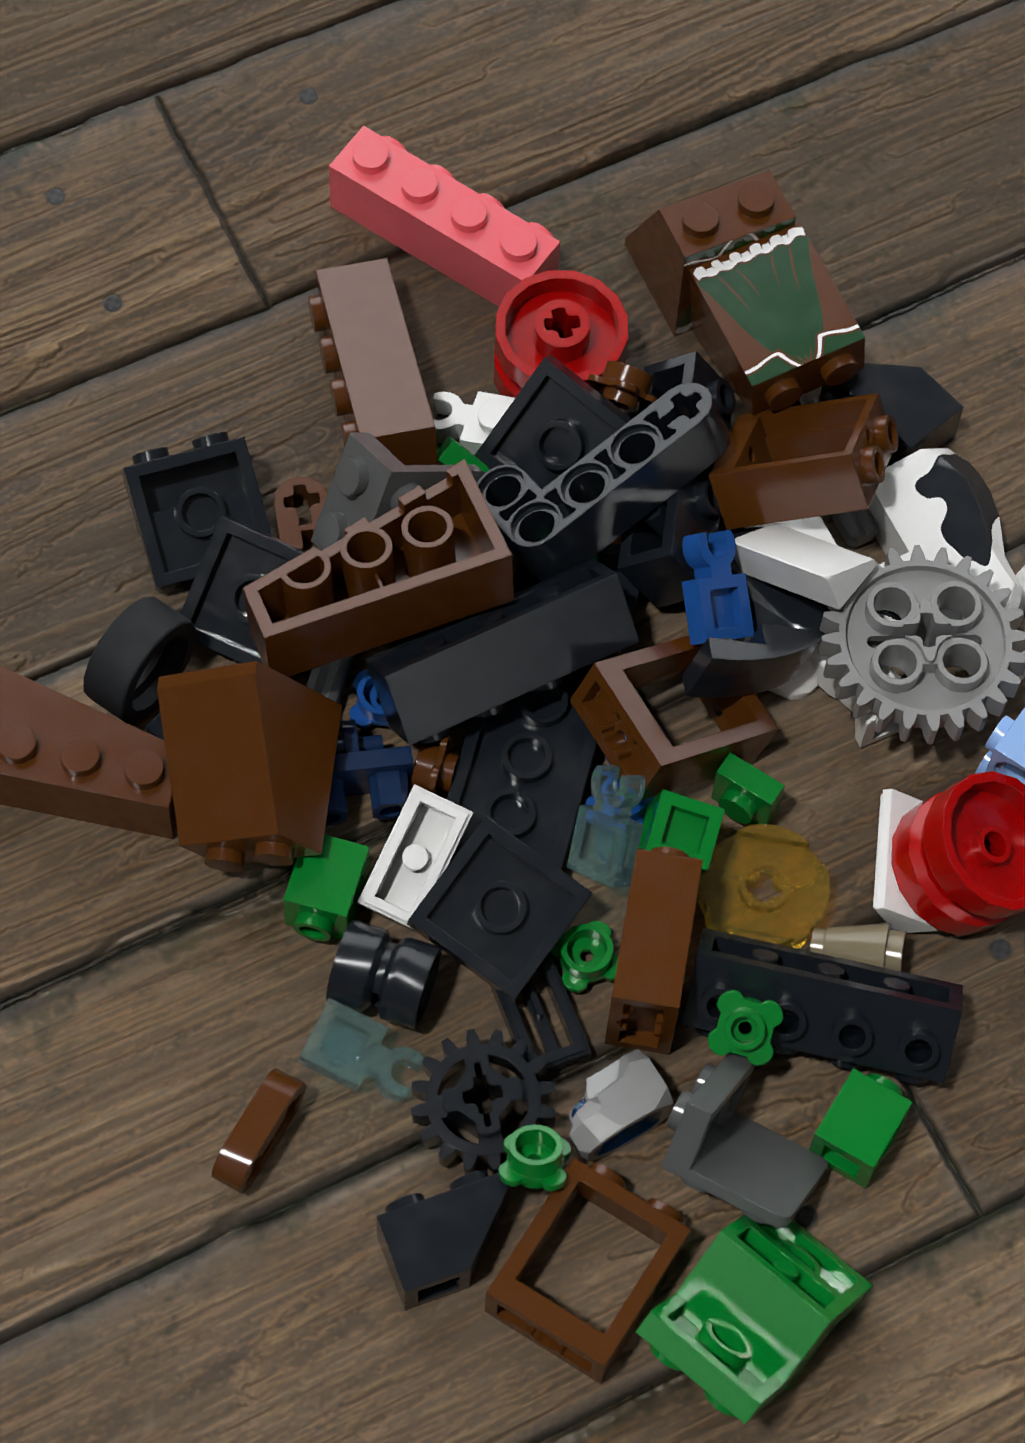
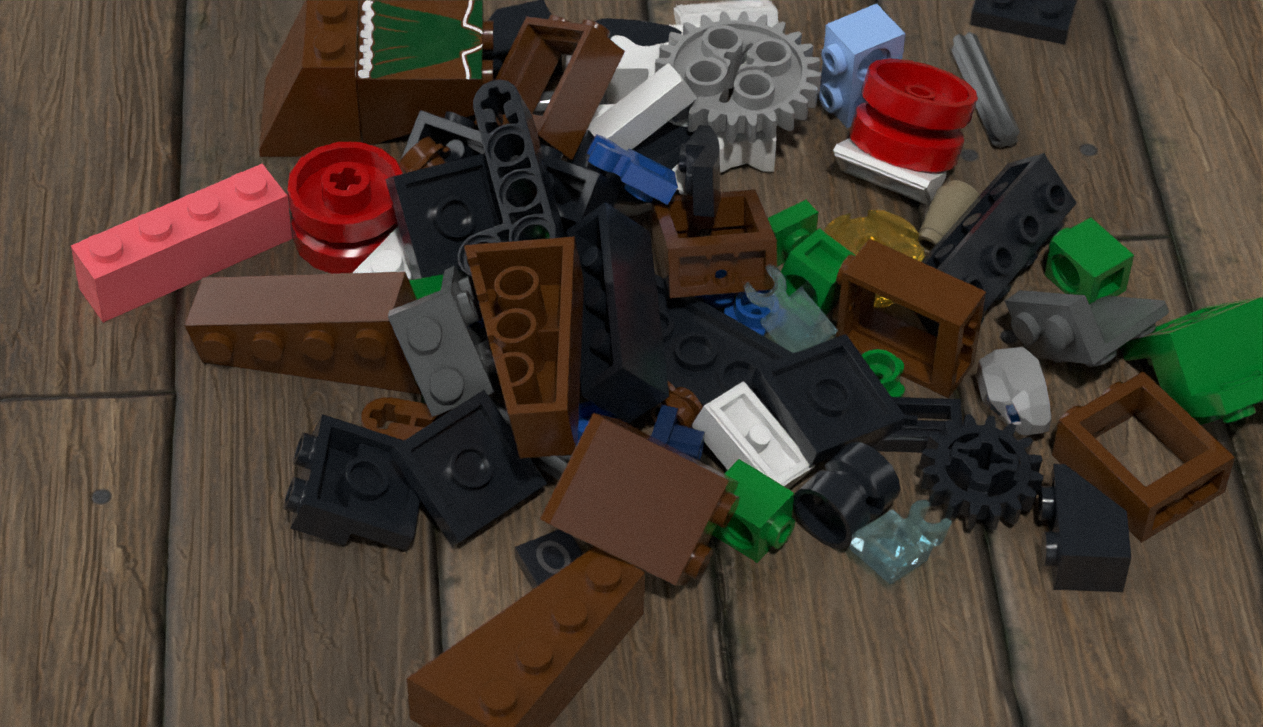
camera: 65 degrees left, 15 degrees down
(132, 655) = (487, 557): black tyre -> none
(258, 1130) = (944, 624): reddish brown beam -> none
(535, 1158) = (1053, 439): green plate -> none
(737, 1009) = (993, 281): green plate -> none

